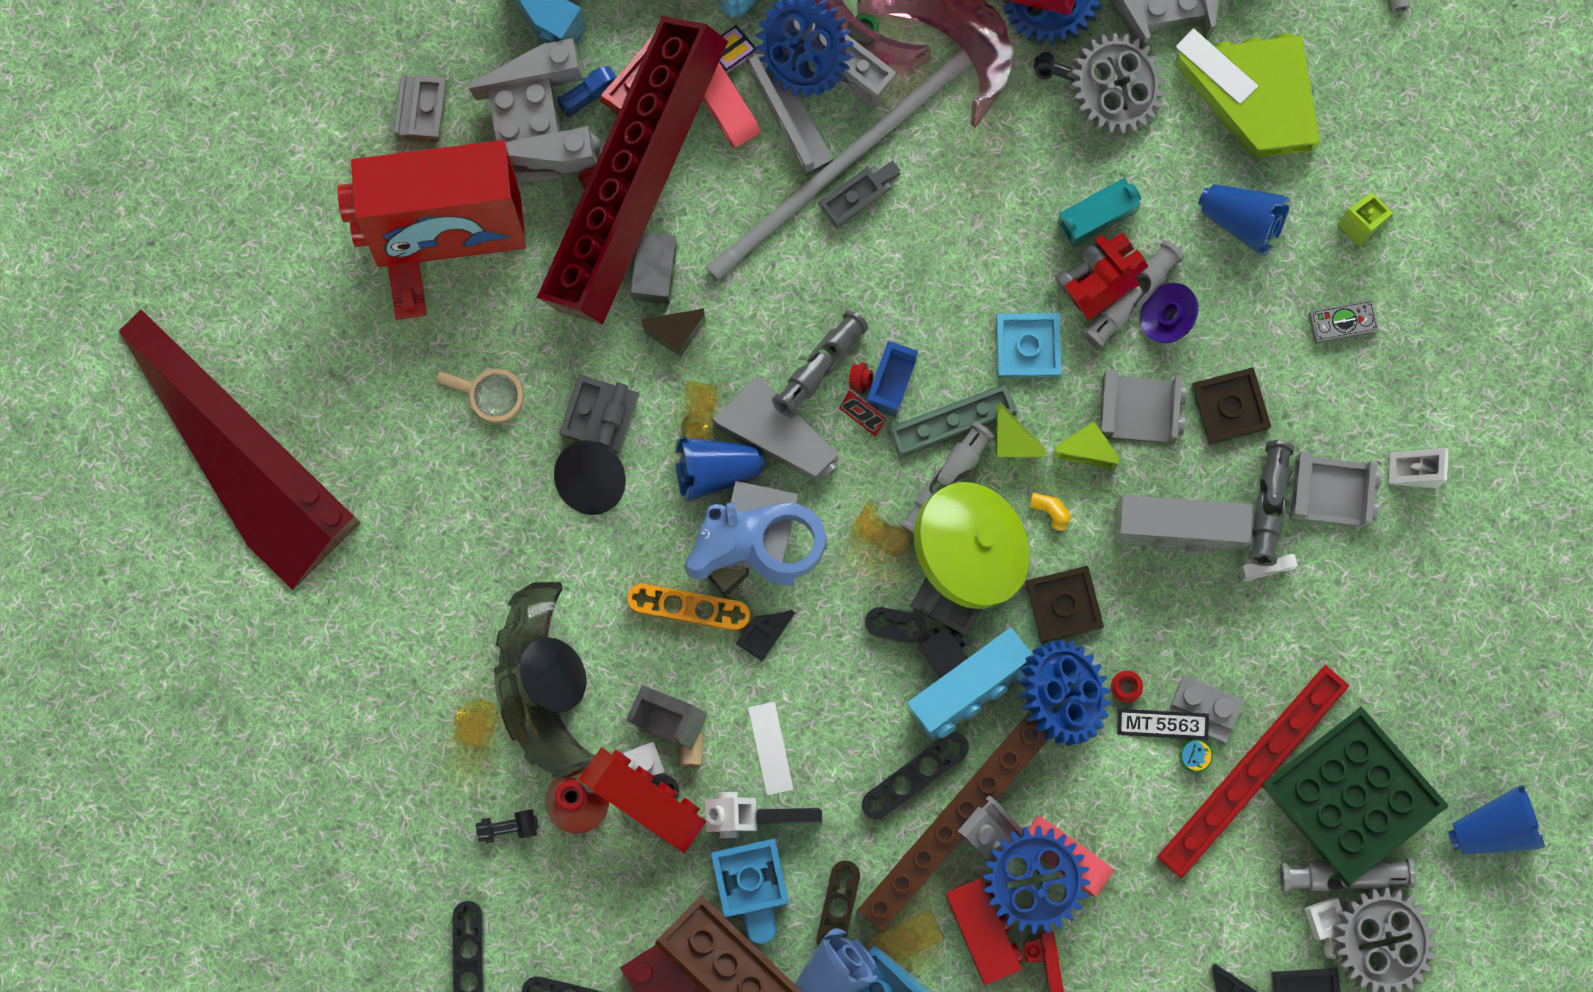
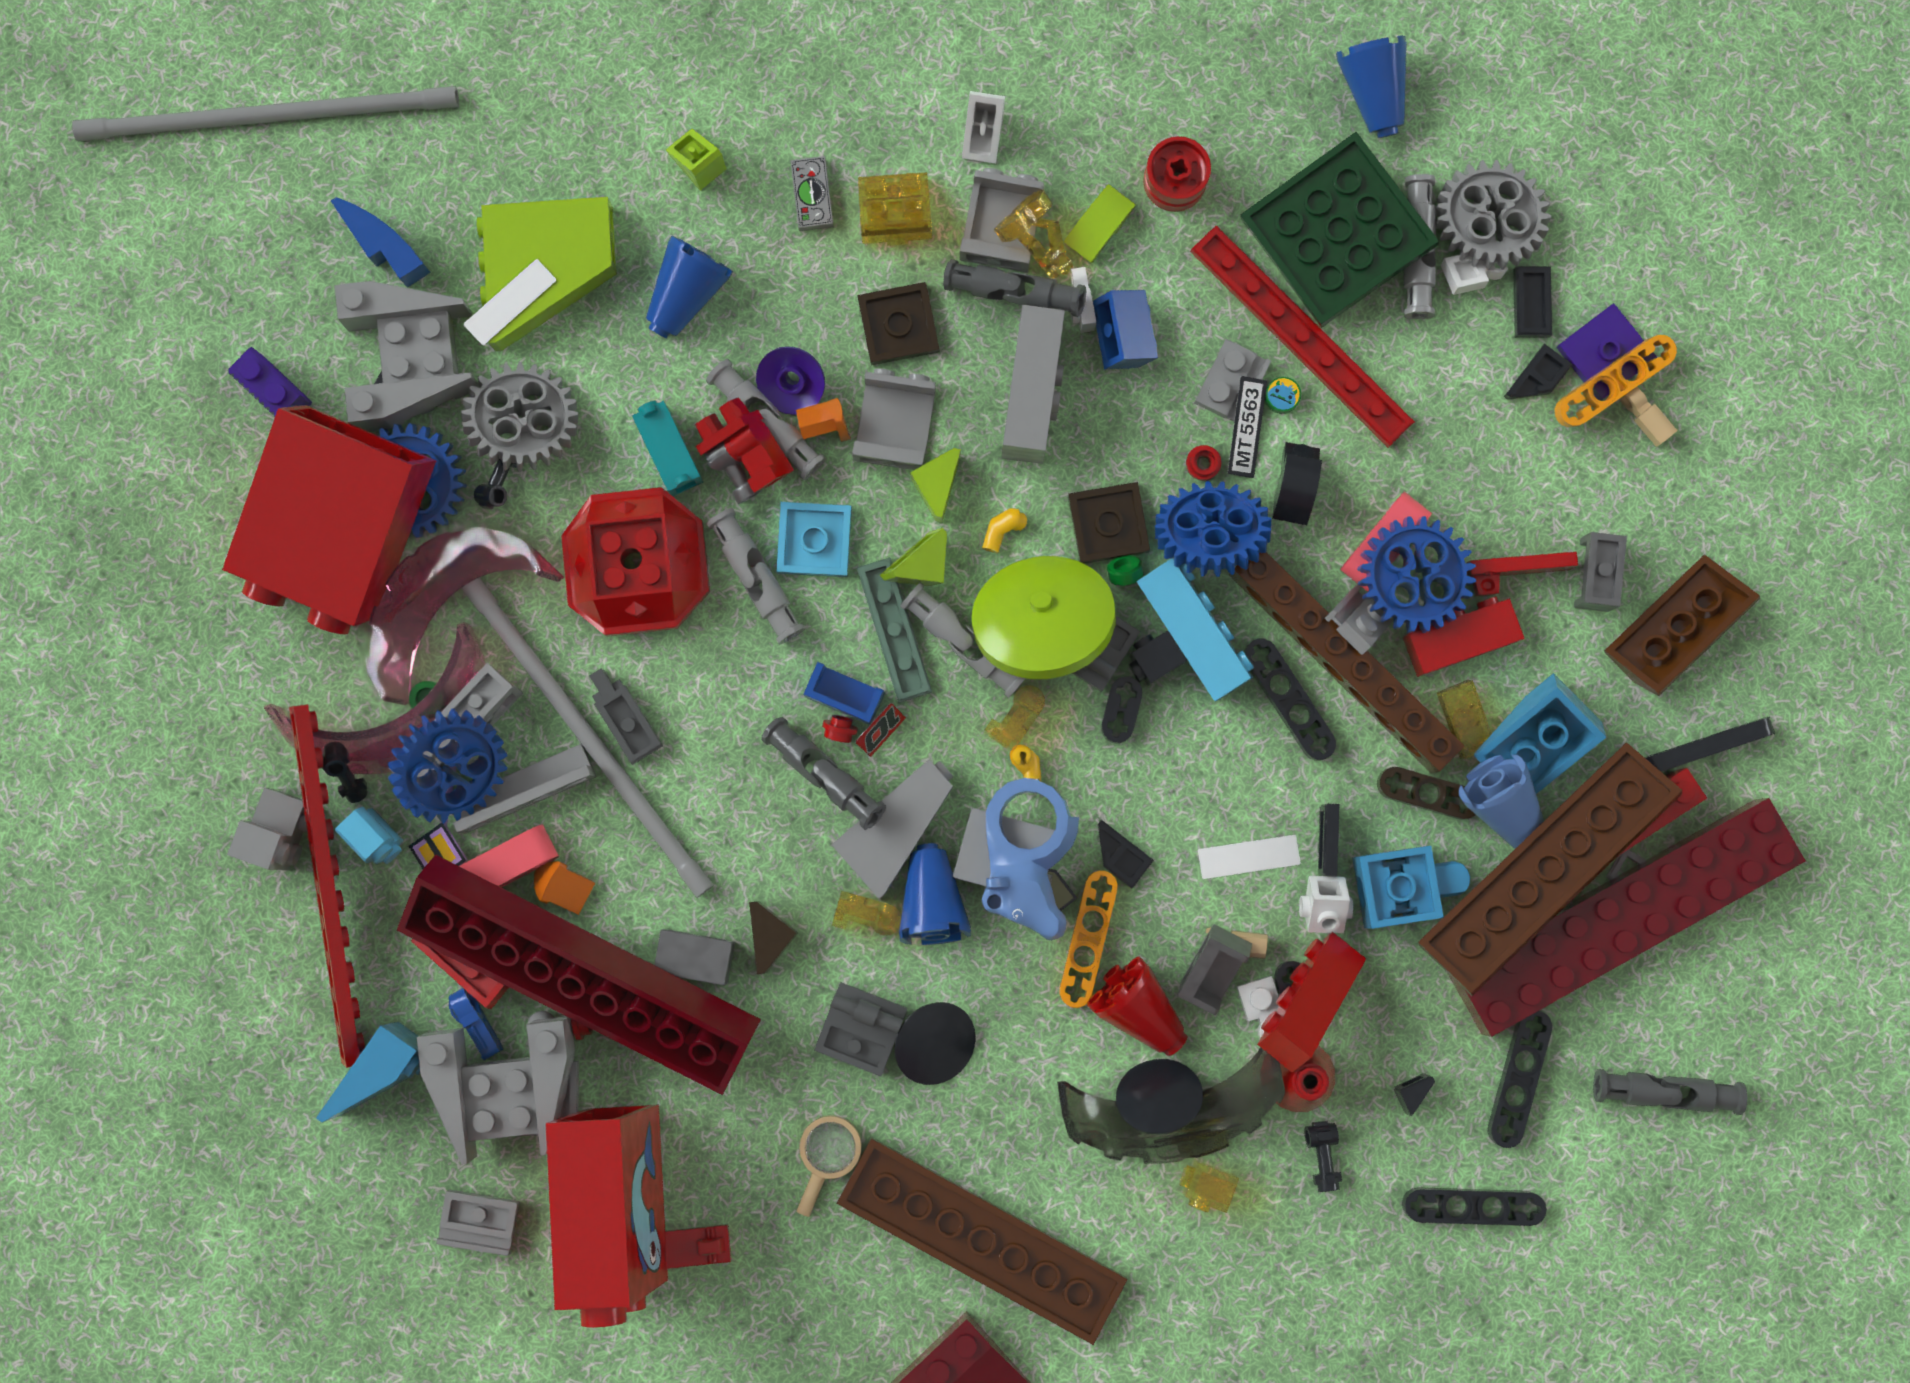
camera: 90 degrees left, 5 degrees up
(421, 530) = (982, 1241): none -> reddish brown plate
(567, 902) = (1413, 1092): none -> black slope
(629, 653) = (1139, 1007): none -> red cone
(708, 153) = (562, 886): none -> orange tile
(841, 543) = (1026, 762): none -> yellow arm
(987, 298) = (740, 552): none -> light grey piece
(989, 222) = (664, 585): none -> red piece
(1021, 619) = (1125, 570): none -> green tile
(1114, 770) = (1297, 483): none -> black brick
(1136, 344) = (823, 419): none -> orange tile
(1242, 605) = (1125, 329): none -> blue brick
(1330, 501) = (1029, 214): none -> clear yellow piece
(1336, 393) = (894, 208): none -> clear yellow plate
(1341, 579) = (1100, 223): none -> lime slope
(1407, 637) = (1180, 156): none -> red wheel

